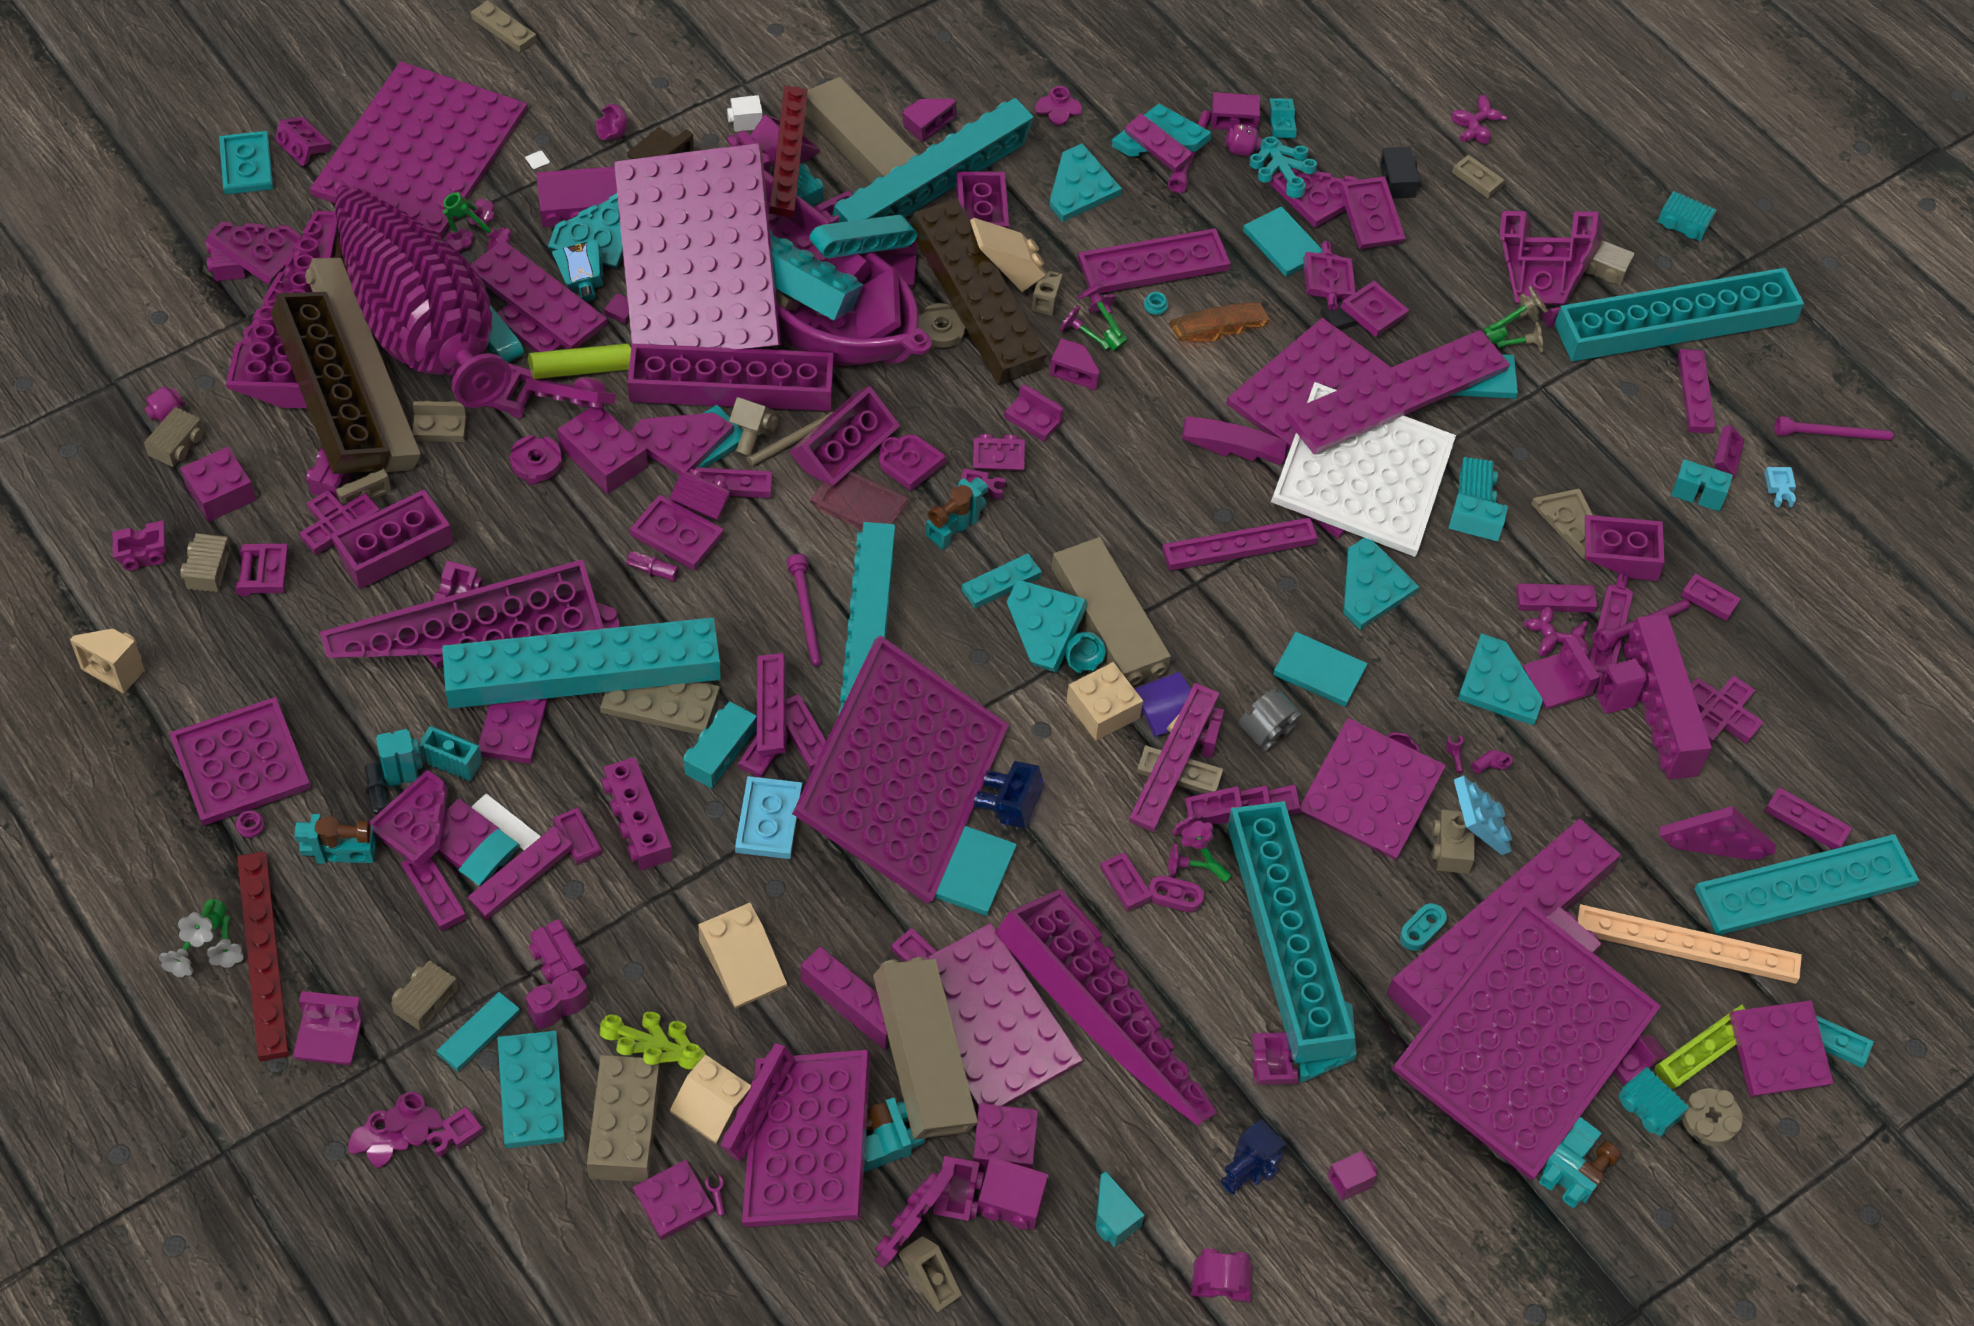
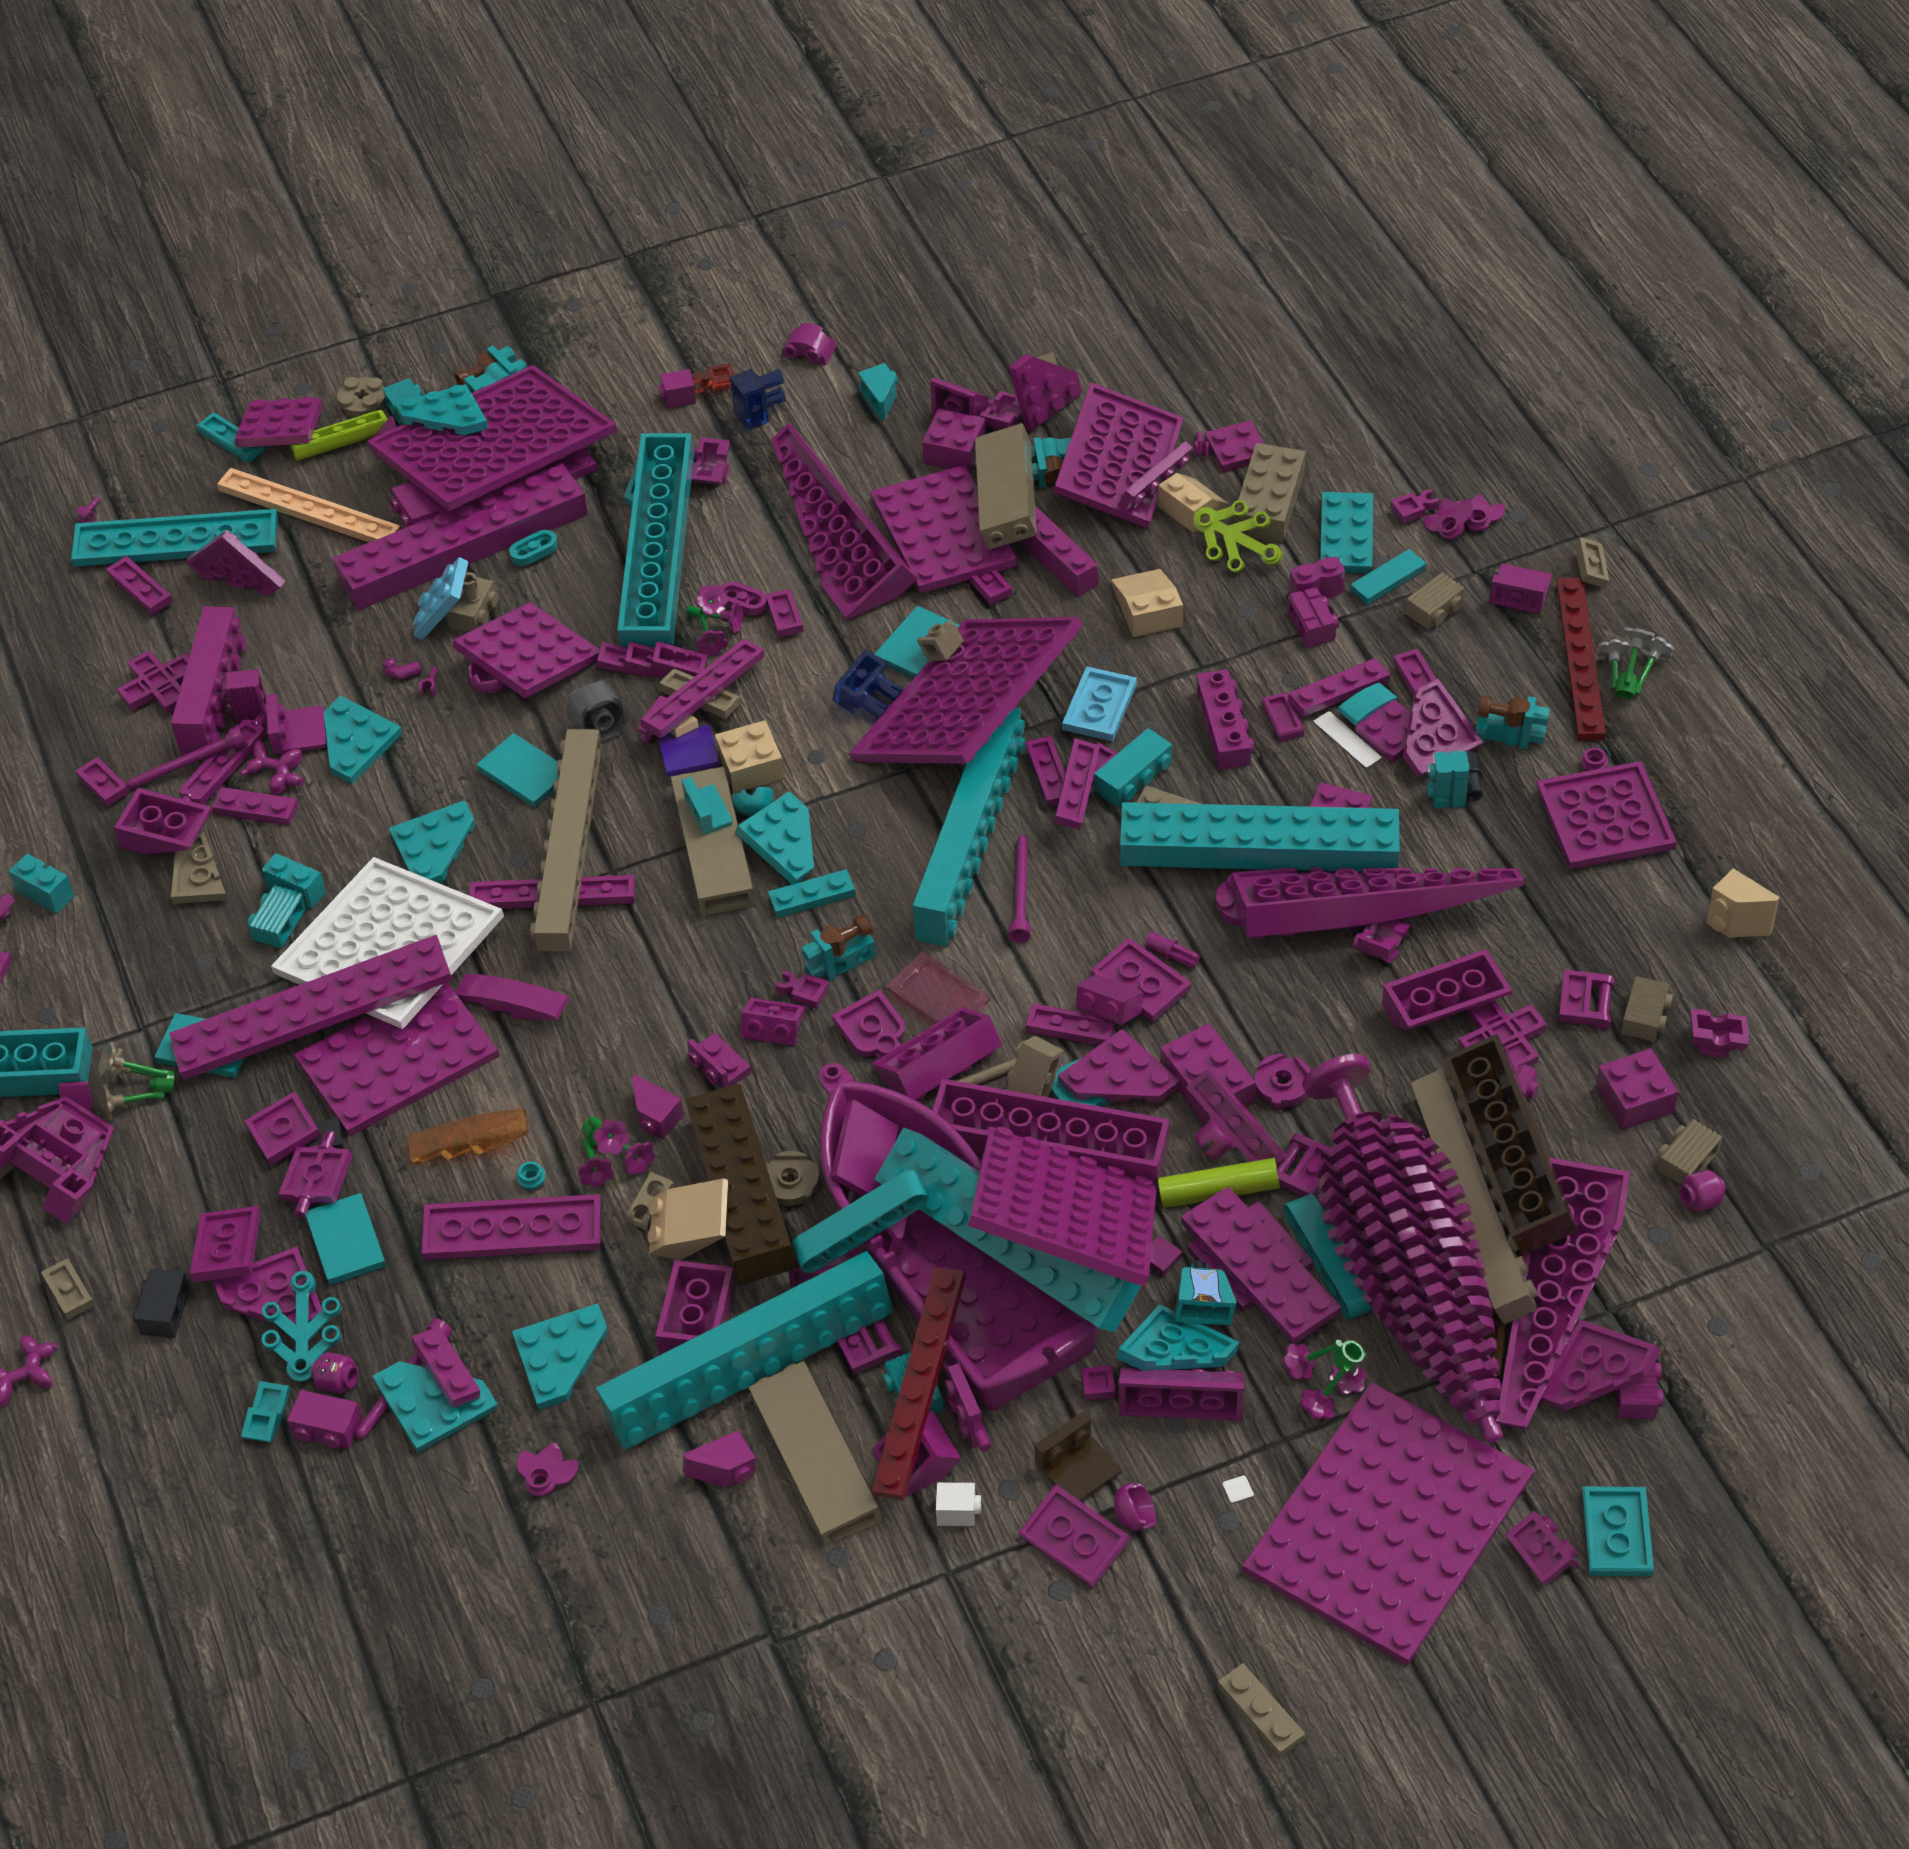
camera: 160 degrees left, 5 degrees down
(247, 1076) = (1591, 562): none -> dark tan plate
(450, 753) = (1398, 783): teal brick -> none
(655, 107) = (1074, 1536): none -> magenta tile
(947, 846) = (940, 641): none -> dark tan brick
(1124, 618) = (706, 806): none -> teal panel
(1243, 580) = (567, 841): none -> dark tan brick
(1312, 1206) = (716, 376): none -> clear red plate
(1594, 1061) = (444, 409): none -> teal plate
(1920, 903) = (87, 513): none -> magenta hand

